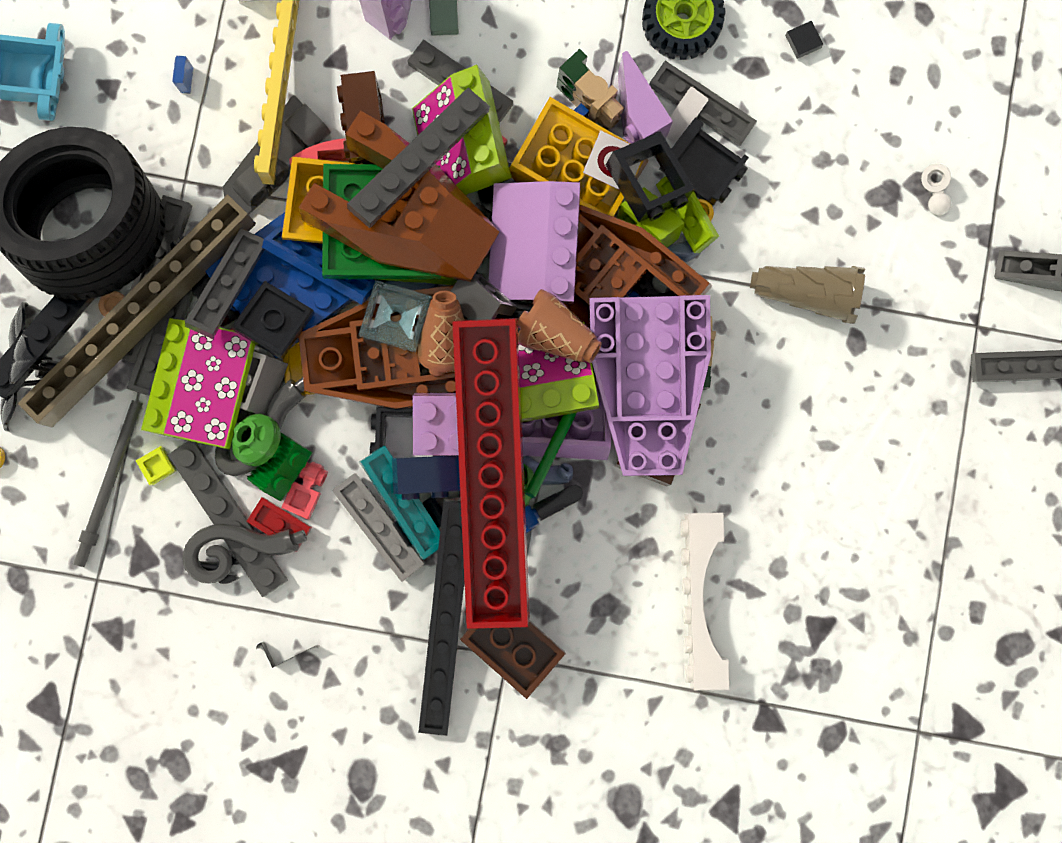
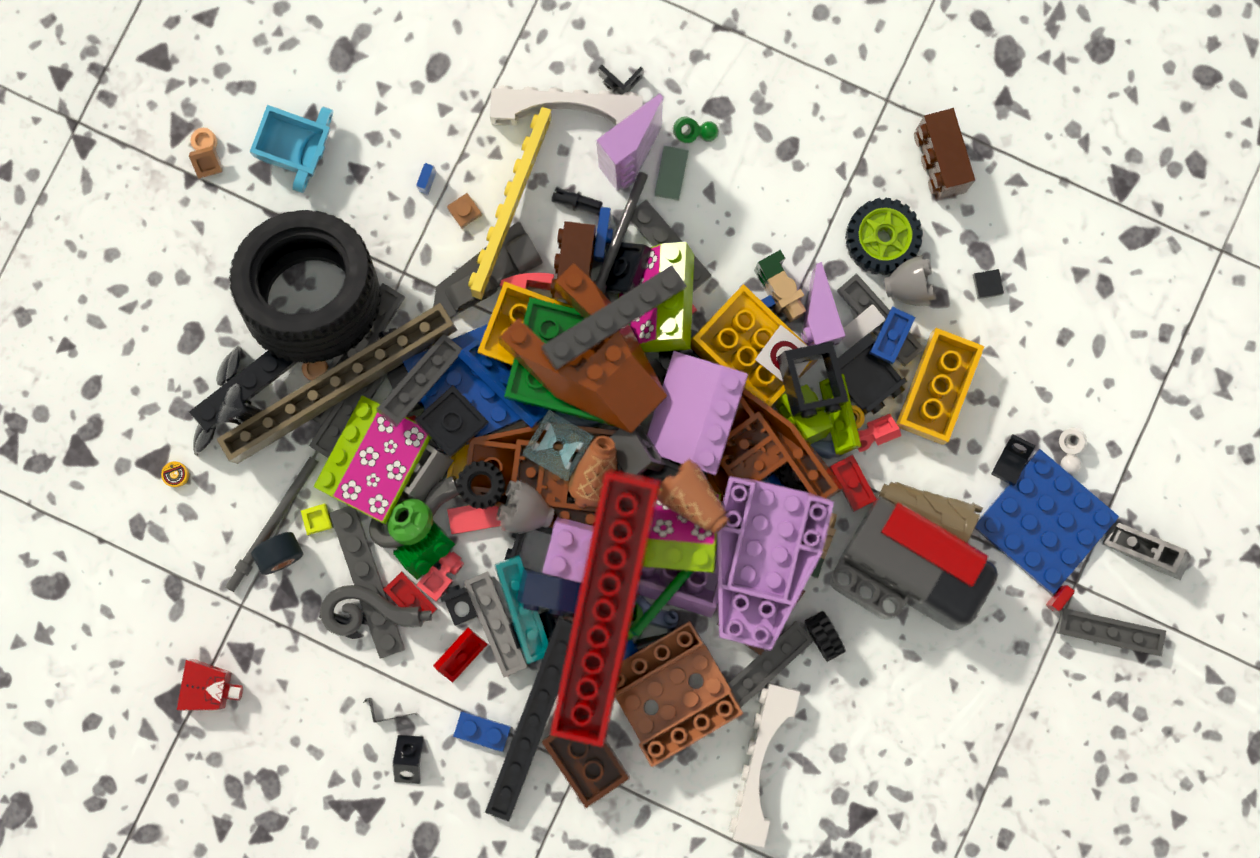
camera: 25 degrees right, 0 degrees up
(78, 678) = (206, 687): none -> red torso
(119, 512) = (277, 553): none -> black wheel
(233, 99) = (464, 210): none -> medium nougat plate
(304, 379) = (465, 480): none -> black tyre
(319, 696) = (407, 758): none -> black bracket
(325, 509) = (453, 596): none -> black bracket
(326, 420) = (470, 519): none -> coral tile
(348, 570) = (460, 654): none -> red plate
(350, 59) = (577, 201): none -> black axle
(376, 392) = (524, 509): none -> light grey piece
(388, 86) = (604, 234): none -> blue plate
(393, 646) = (482, 731): none -> blue plate
(405, 72) = (620, 231): none -> dark grey bar
(417, 109) = (627, 268): none -> black tile
(605, 568) = (684, 713): none -> nougat slope
(679, 495) = (770, 663): none -> dark grey plate
(720, 113) = (892, 335): none -> blue plate
(725, 55) = (910, 282): none -> light grey piece
(726, 286) = (854, 483): none -> red plate
(733, 218) = (880, 431): none -> coral plate
(733, 447) = (825, 636): none -> black tyre
(784, 154) = (939, 386): none -> yellow brick
(808, 345) = (914, 564): none -> piece
(878, 213) = (1012, 460): none -> black bracket
(930, 269) = (1046, 522): none -> blue plate
(967, 344) = (1060, 598): none -> red tile

